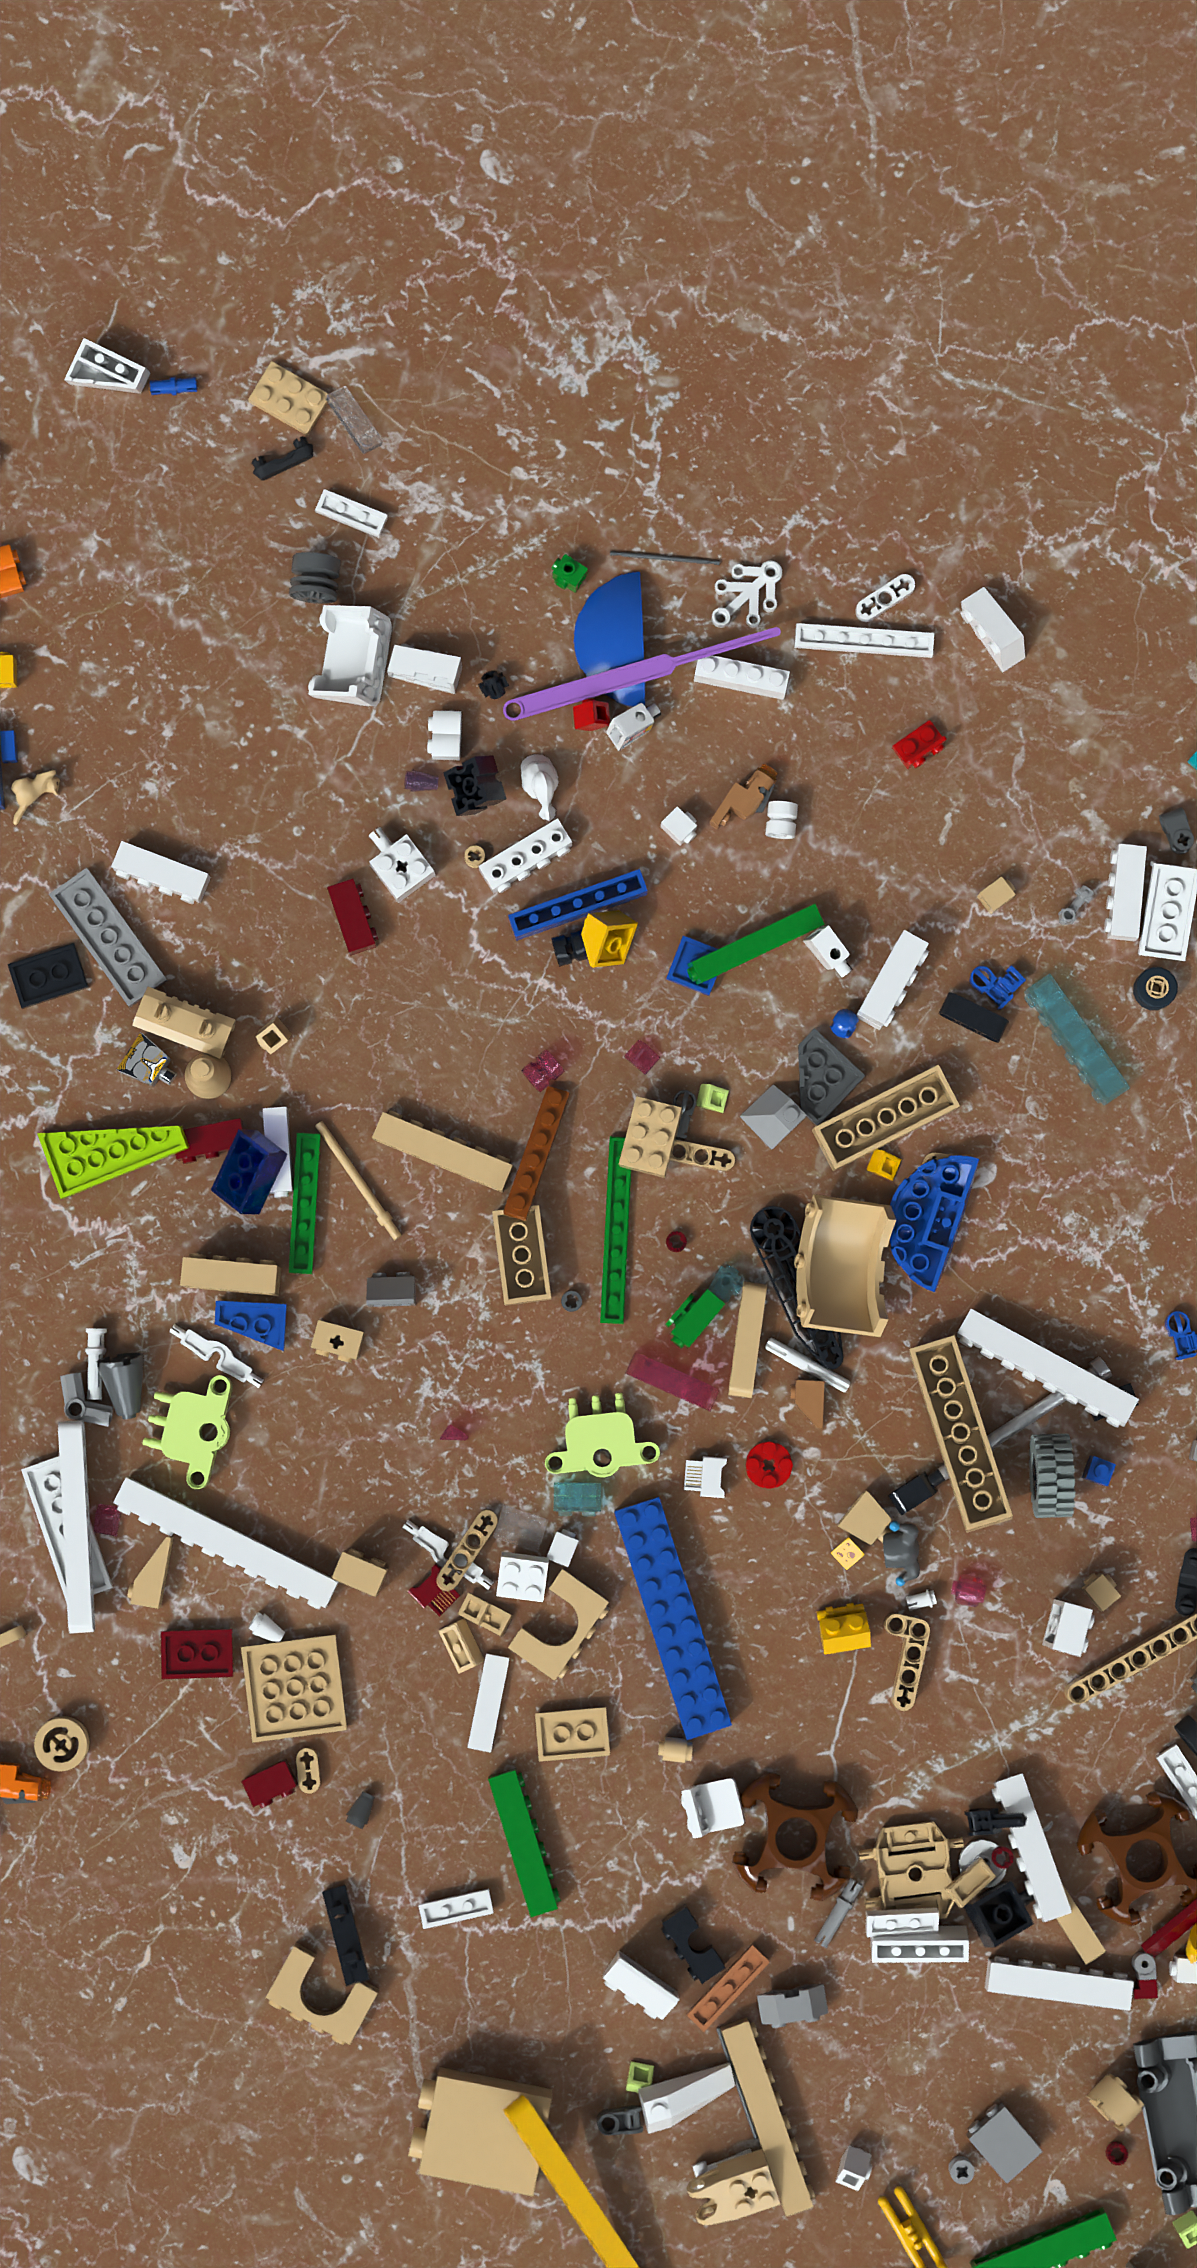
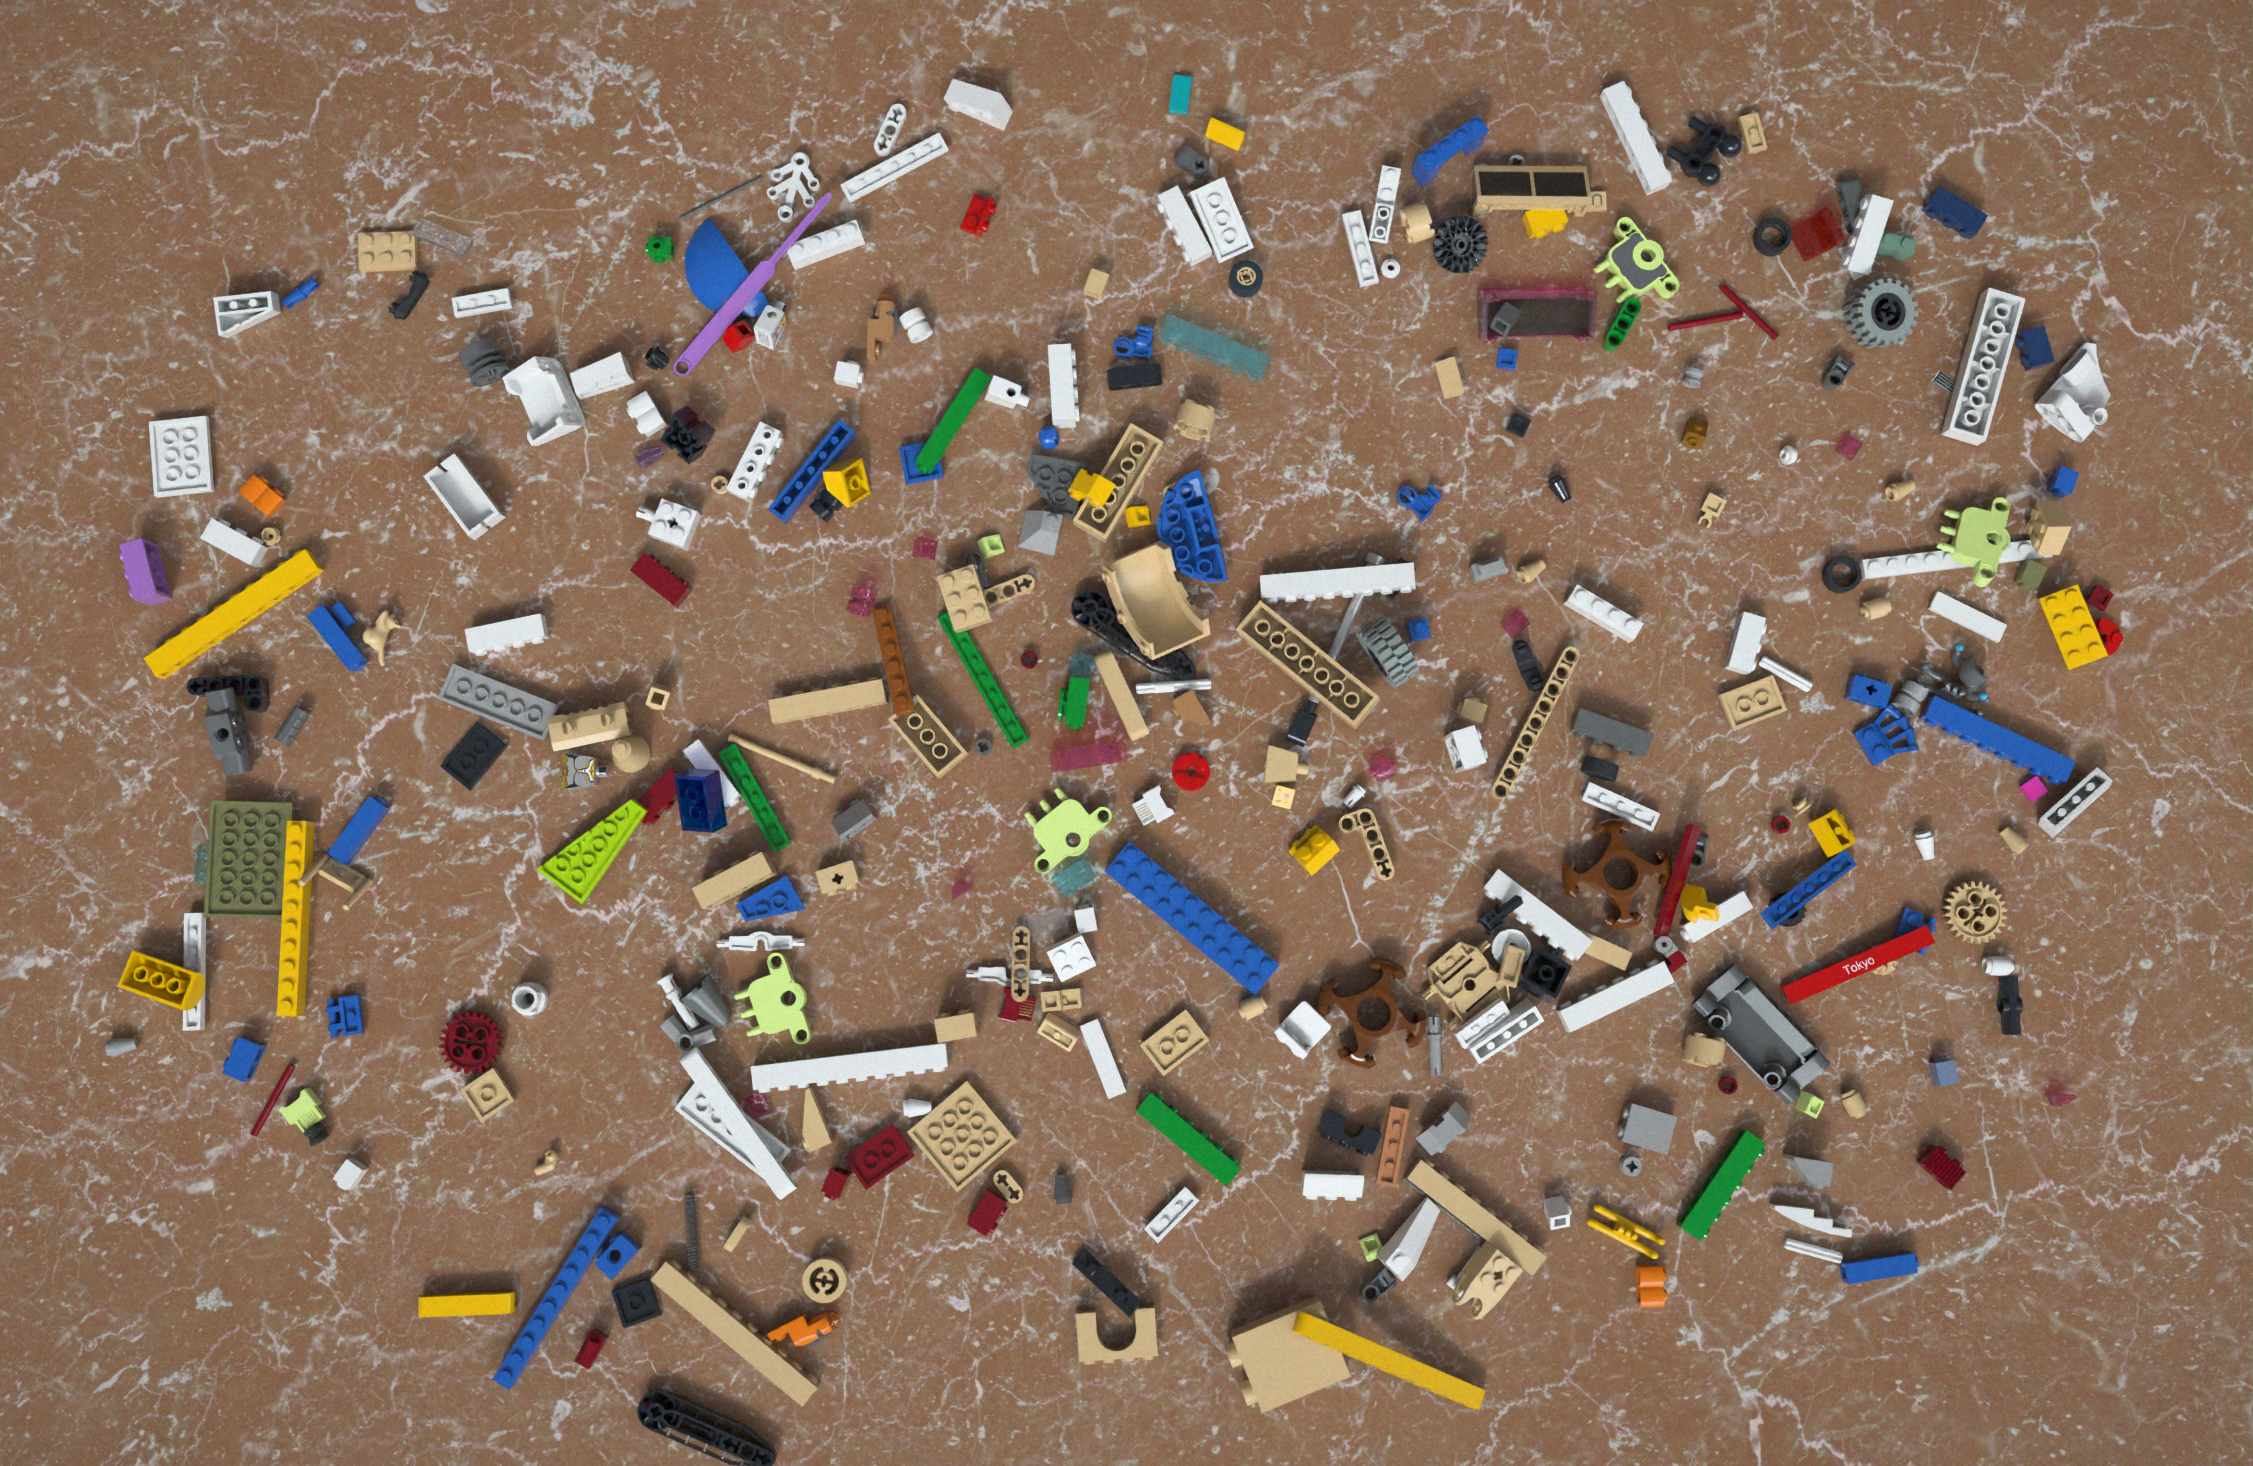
camera: 30 degrees left, 0 degrees up
(136, 1652) = (836, 1182): none -> dark red brick
(207, 704) = (464, 497): none -> white piece
(540, 782) = (732, 404): white piece -> none
(553, 1658) = (1128, 999): tan arch -> none
(856, 1108) = (1094, 488): none -> yellow brick
(902, 1550) = (1319, 770): dark grey piece -> none
(1006, 1864) = (1516, 932): dark red bush -> none
(1007, 1103) = (1195, 420): none -> tan brick
(1067, 915) = (1154, 266): light grey bar -> none

